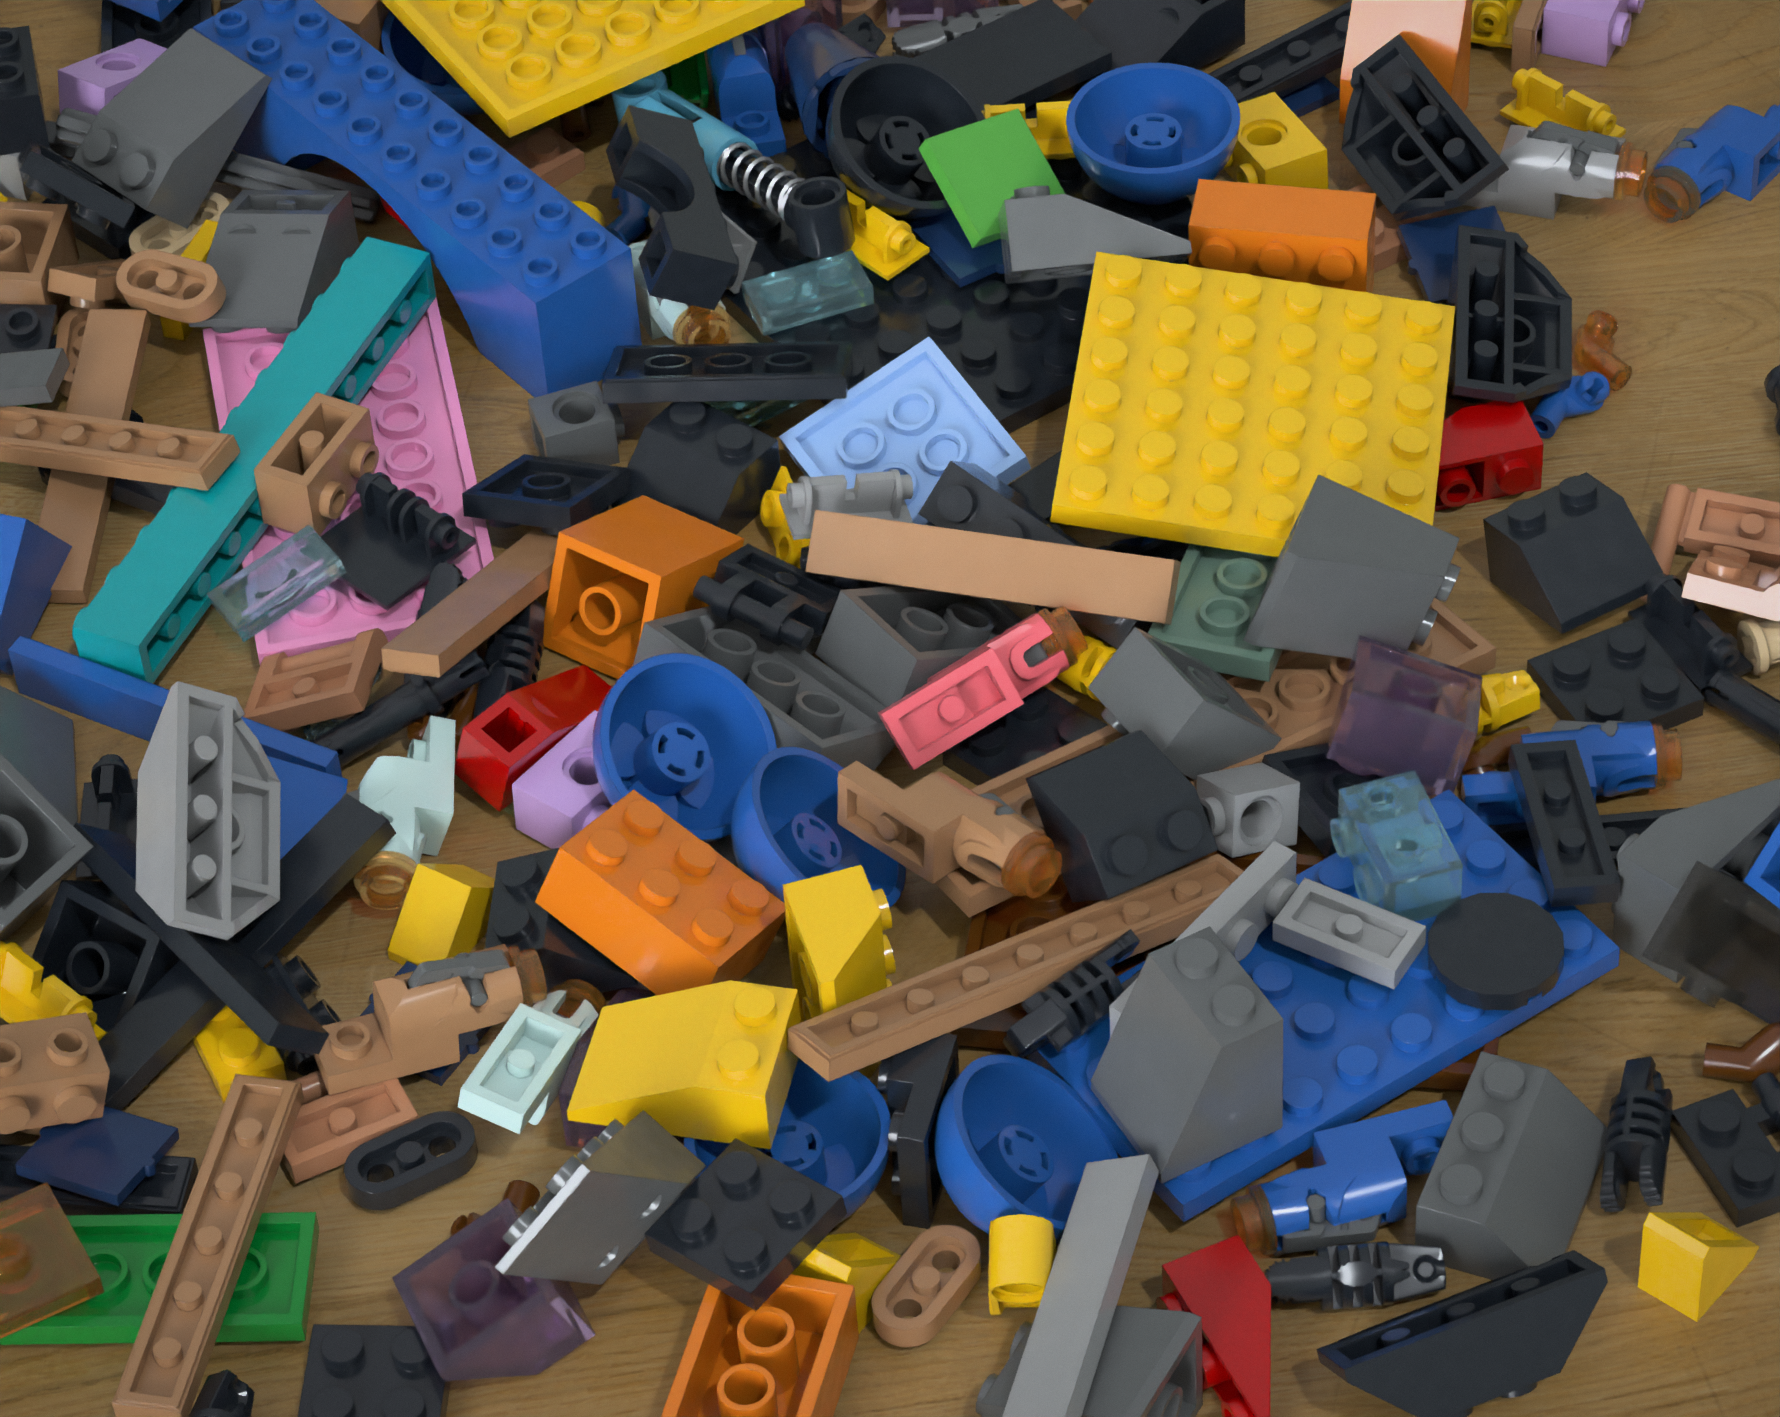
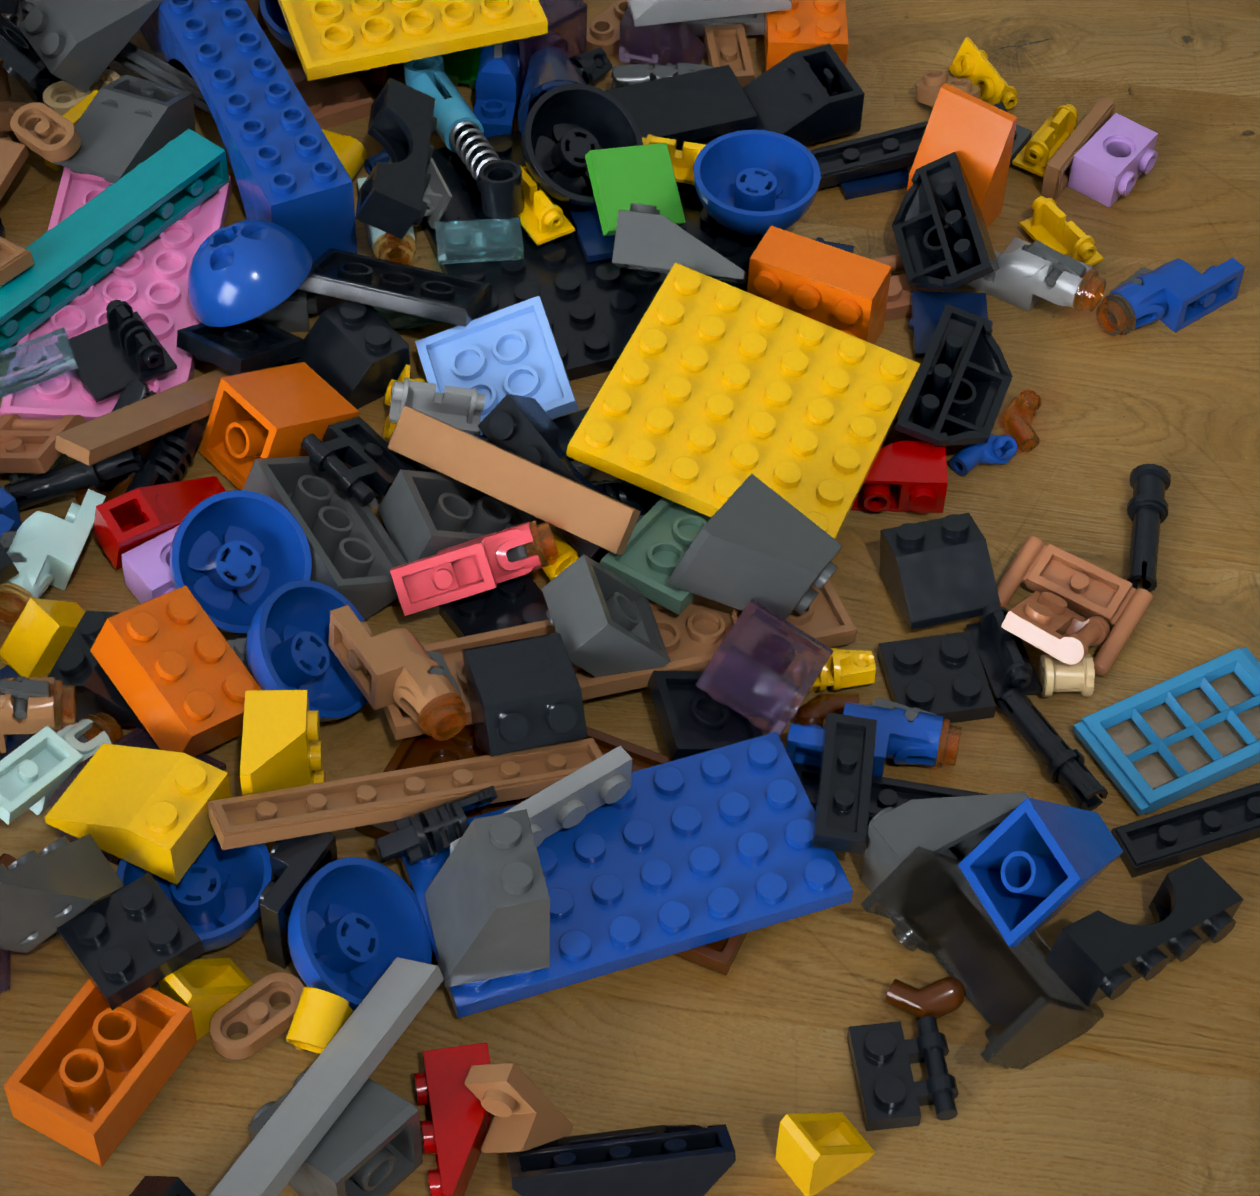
camera: 10 degrees right, 5 degrees up
(316, 464) = (84, 283): medium nougat brick -> none
(527, 398) = (245, 272): none -> blue piece
(1250, 808) = (626, 708): light grey brick -> none
(1276, 147) = (844, 214): yellow brick -> none
(1309, 1294) = (520, 1110): none -> medium nougat slope
(1349, 933) = (653, 829): light grey plate -> none
(1352, 1184) = (592, 1025): blue plate -> none
(1359, 1275) = (584, 1096): black hinge -> none
(1397, 847) = (713, 773): clear light blue brick -> none
(1495, 950) = (756, 870): black tile -> none
(1510, 1171) = (709, 1045): dark grey slope -> none
(1637, 1137) = (815, 1041): black hinge -> none

